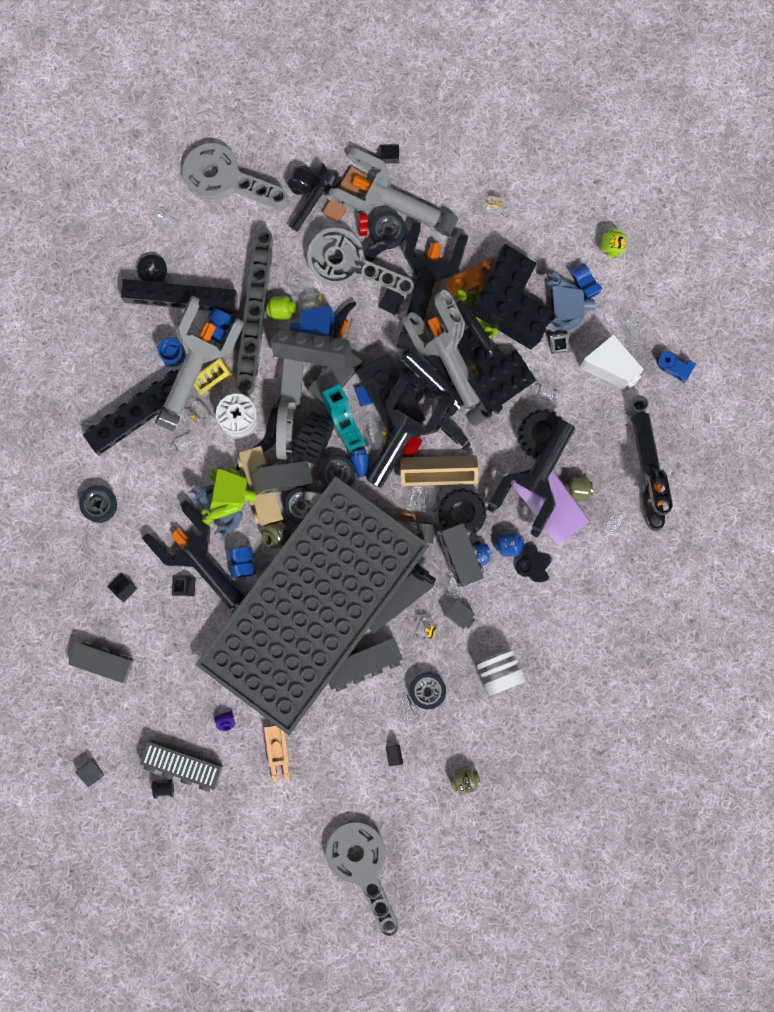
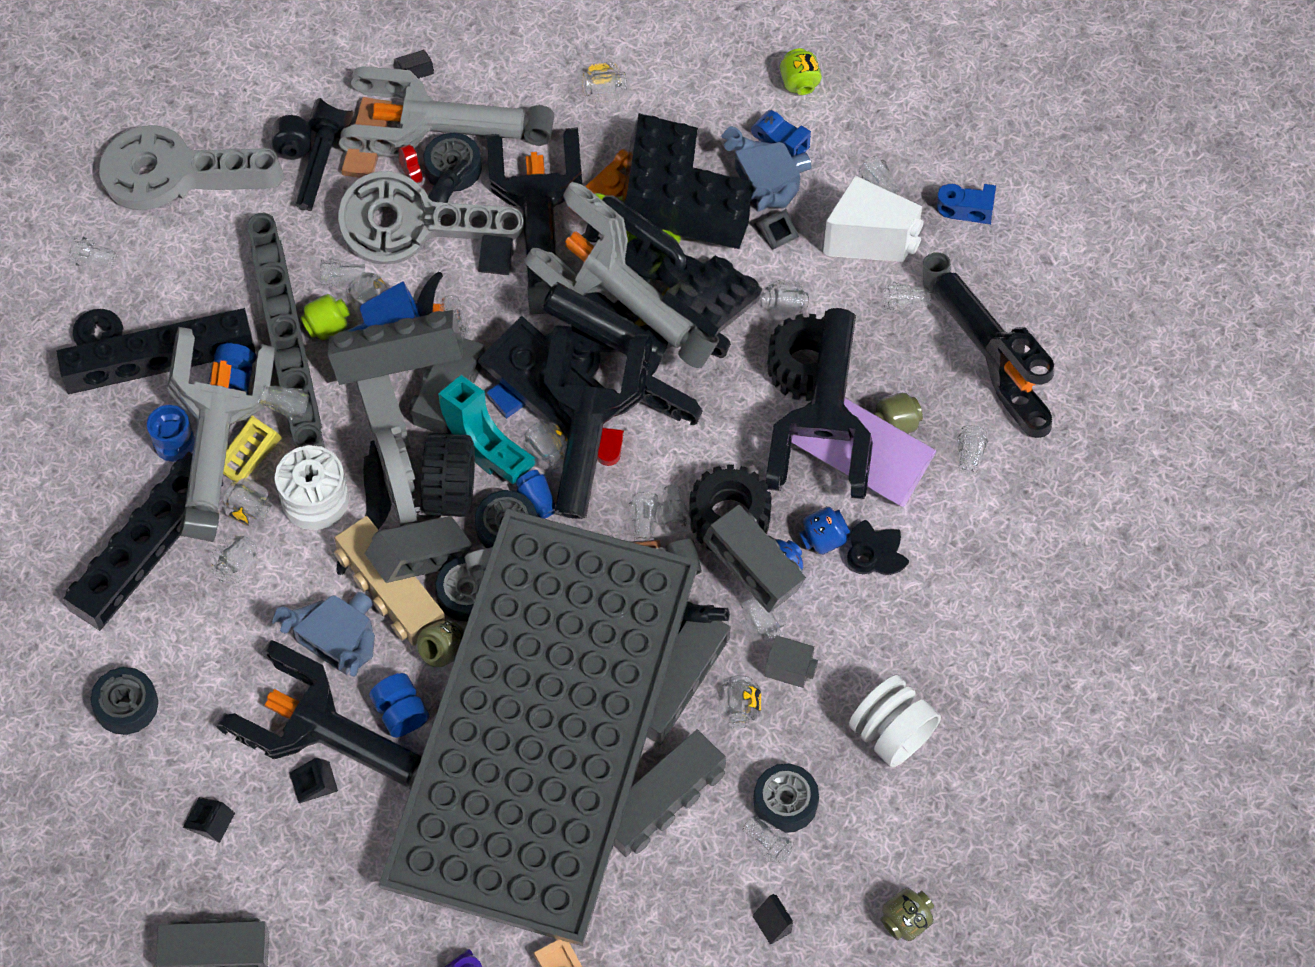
camera: 20 degrees left, 20 degrees down
(227, 494) = (338, 601): lime torso -> none
(238, 360) = (284, 400): none -> clear cone
(438, 470) = (667, 460): tan brick -> none

